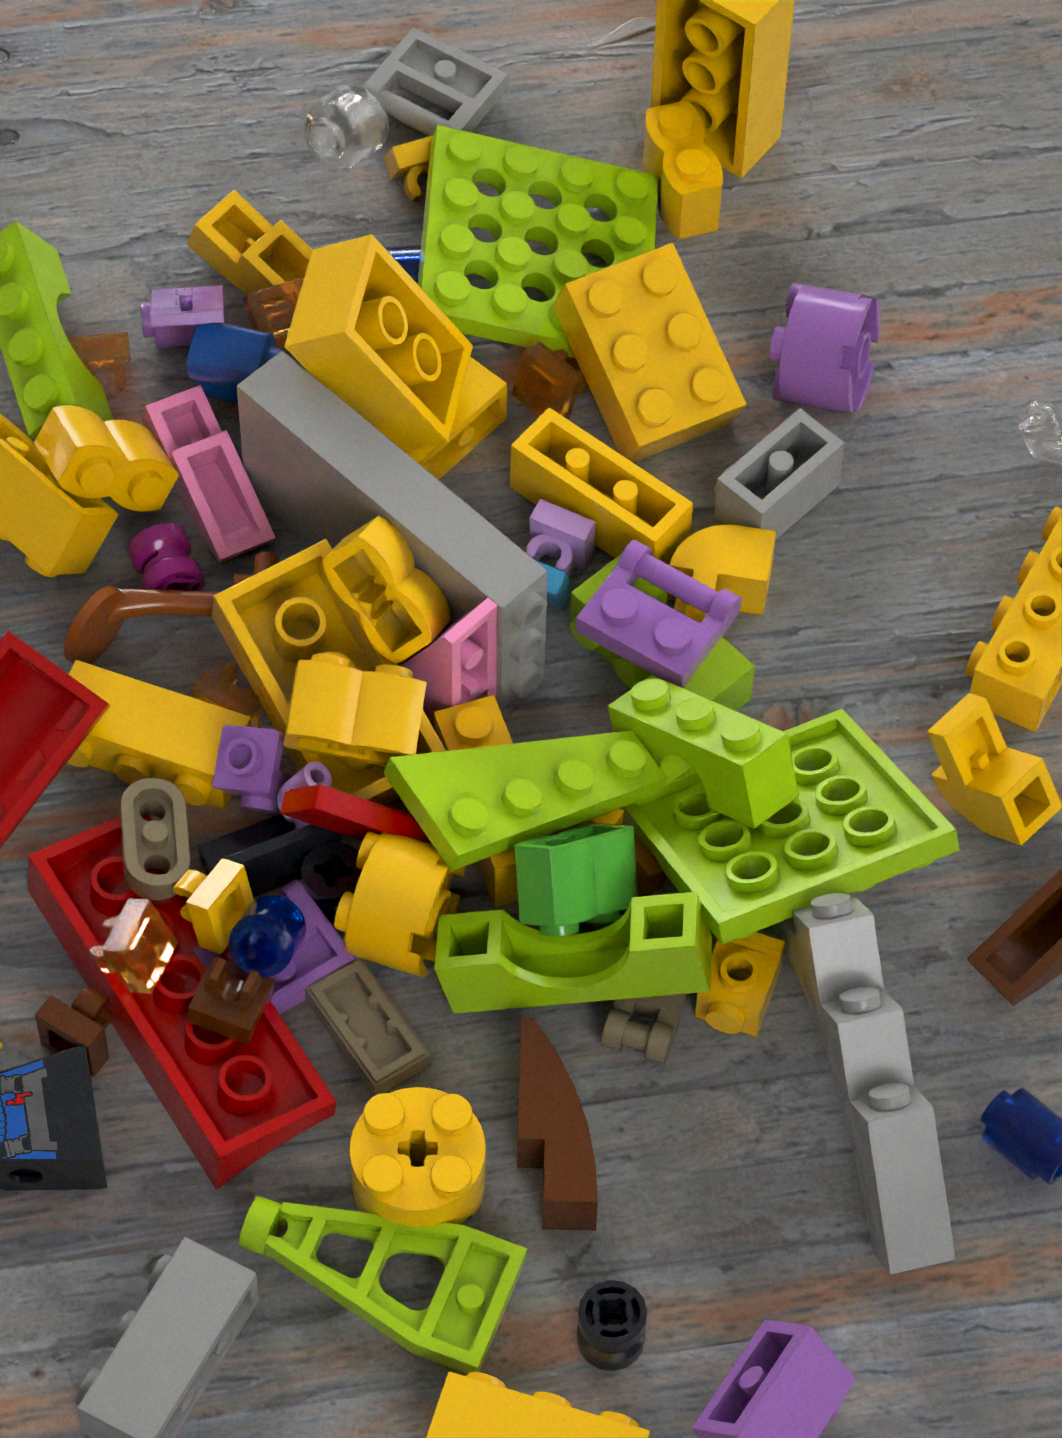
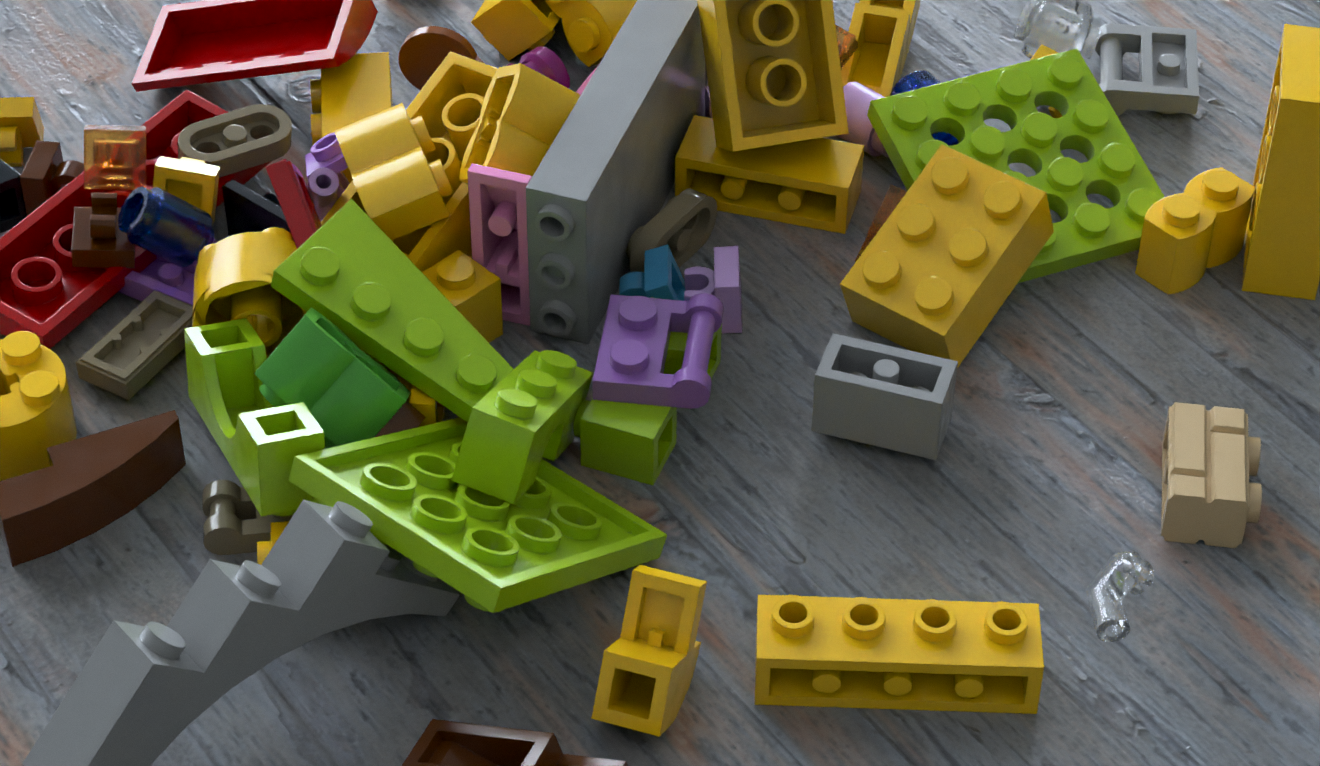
camera: 65 degrees right, 15 degrees down
(585, 476) = (778, 290): yellow brick -> none
(727, 559) = (761, 398): yellow brick -> none
(825, 348) = (1061, 376): medium lavender brick -> none
(966, 312) = (1208, 475): none -> tan brick

